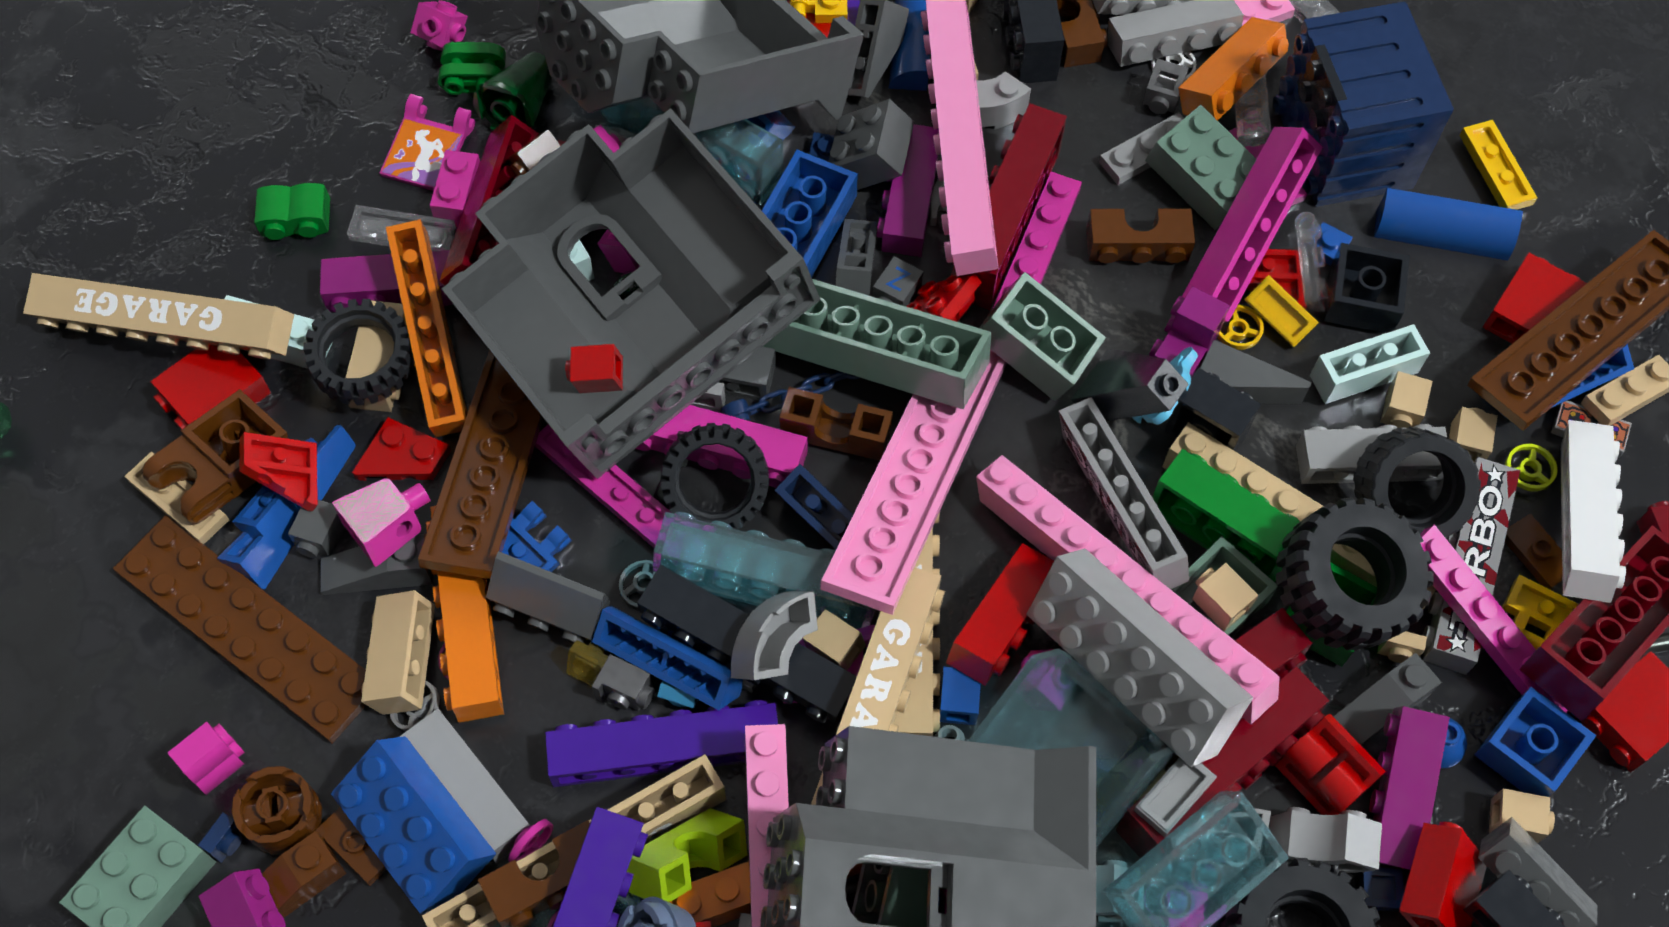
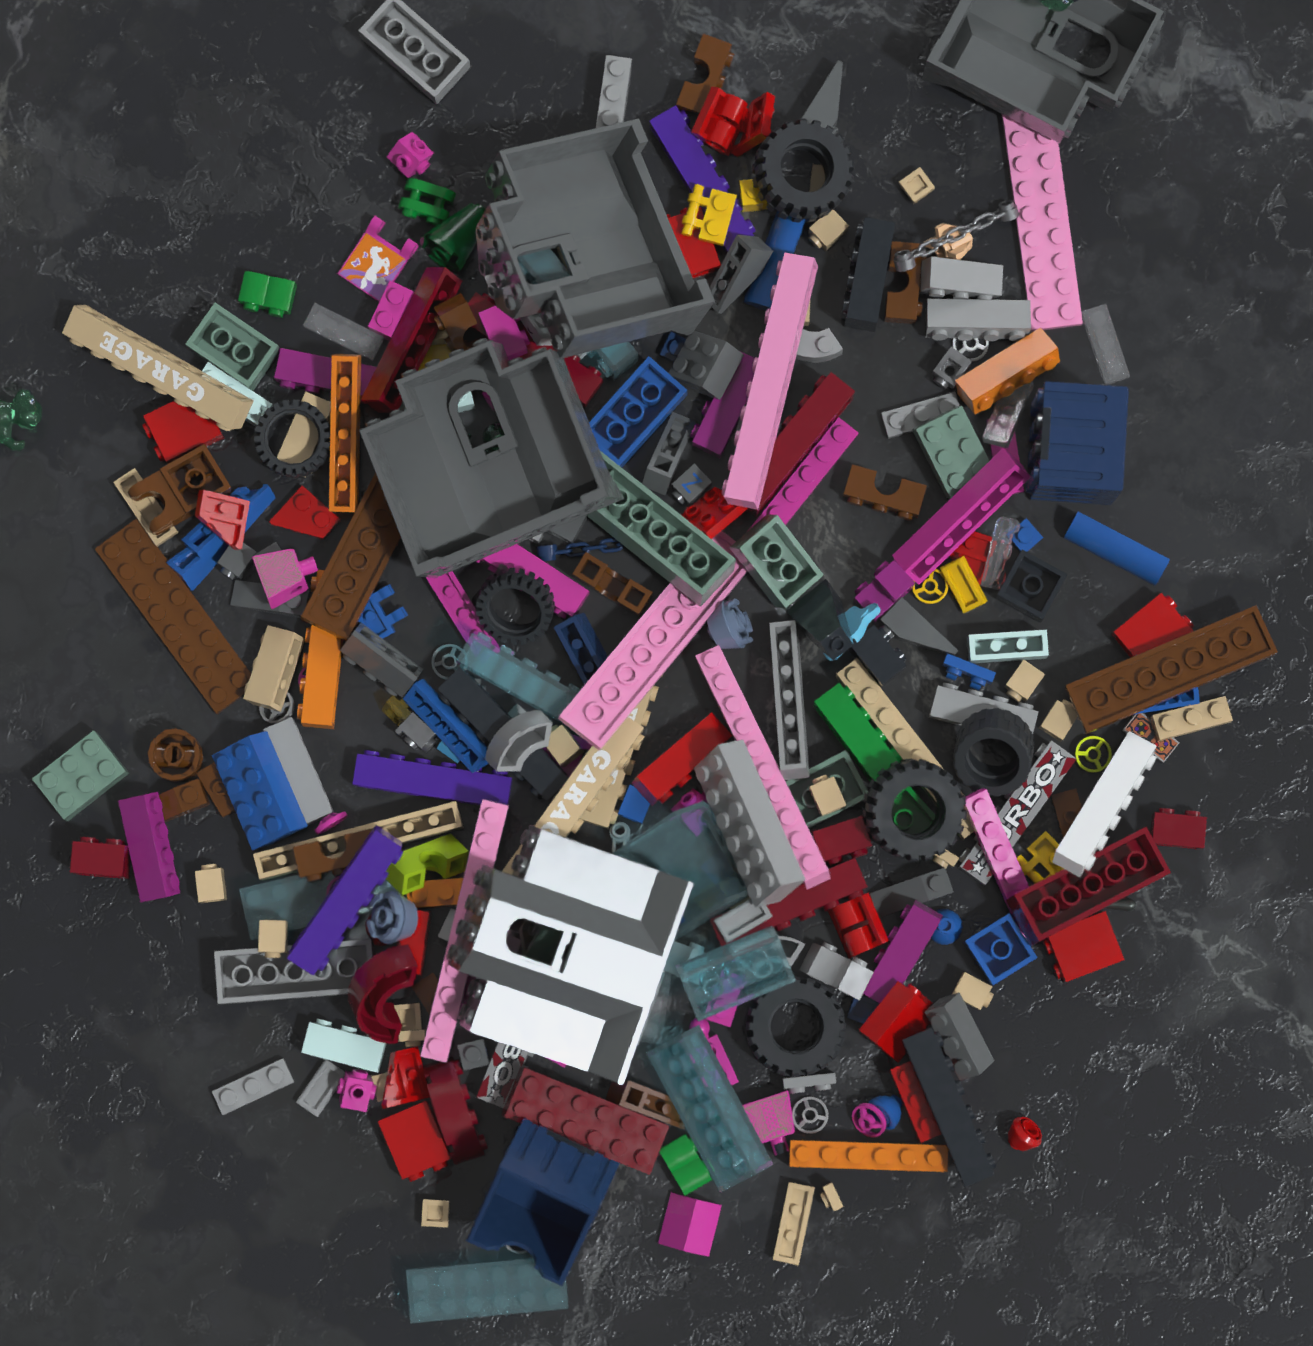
camera: 20 degrees right, 20 degrees up
(208, 756) = (138, 707): dark pink brick -> none
(222, 838) = (137, 762): dark blue plate -> none
(258, 270) = (233, 346): none -> sand green brick
(595, 368) = (451, 513): red brick -> none
(1006, 431) = (729, 626): none -> sand blue cone
(1343, 399) = (958, 666): none -> blue plate
(1498, 165) = (1179, 508): yellow plate -> none

